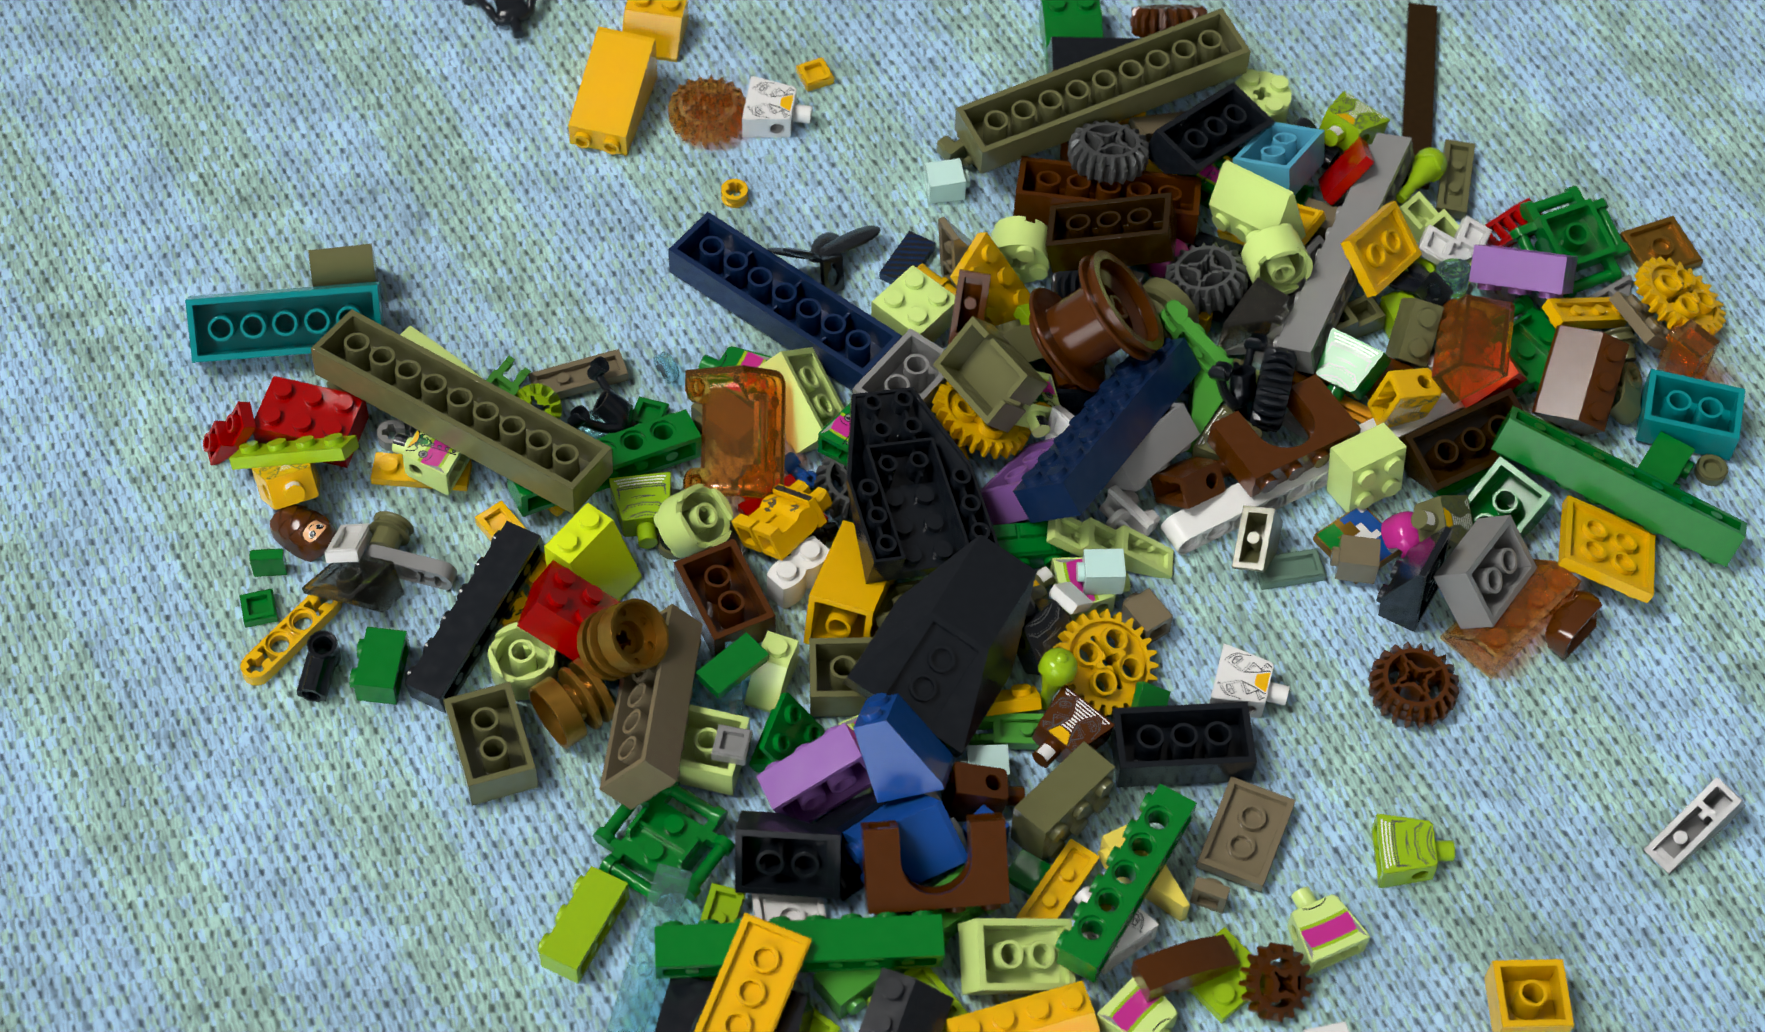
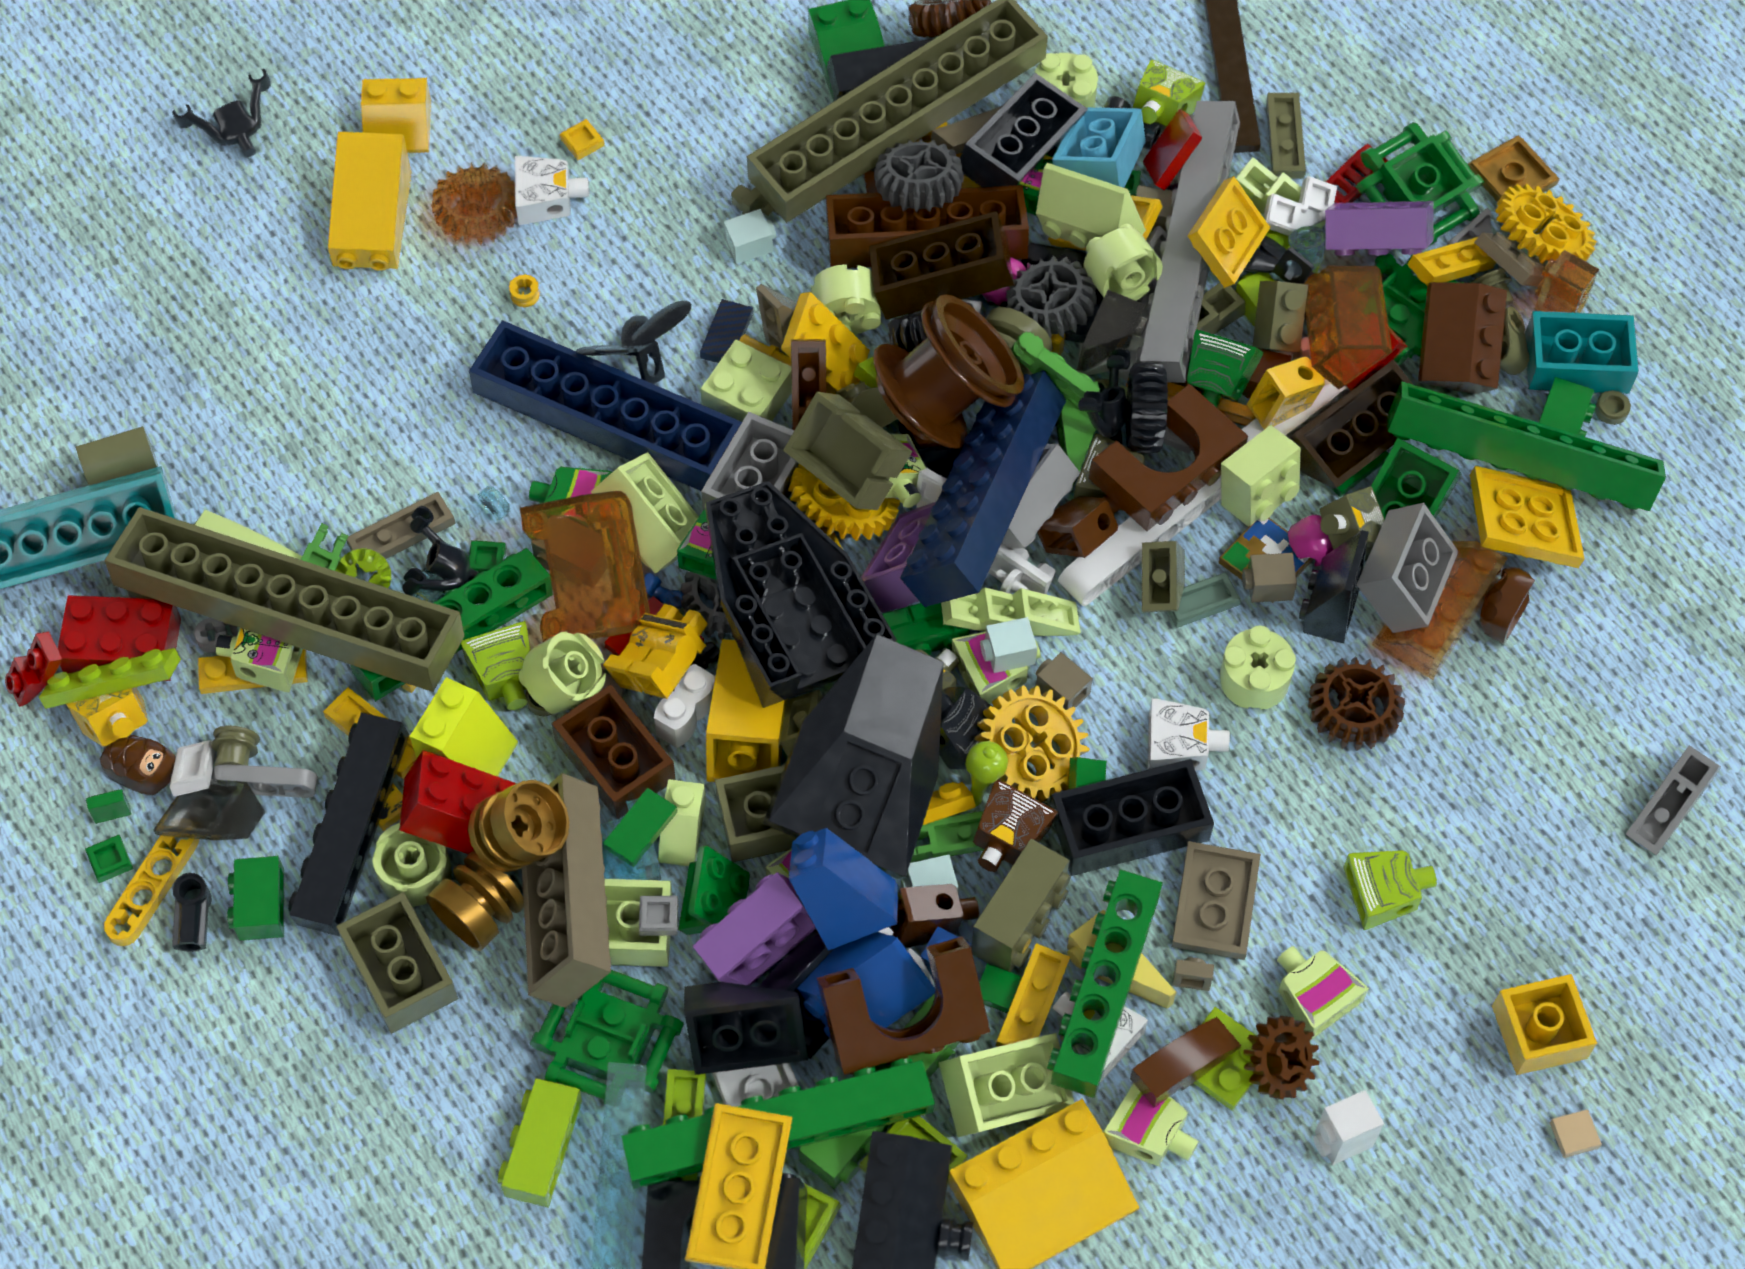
camera: 10 degrees left, 5 degrees up
(1070, 598) = (982, 681): white tile -> none
(1327, 637) = (1257, 668): none -> yellowish green brick
(1427, 167) = (1255, 128): lime piece -> none

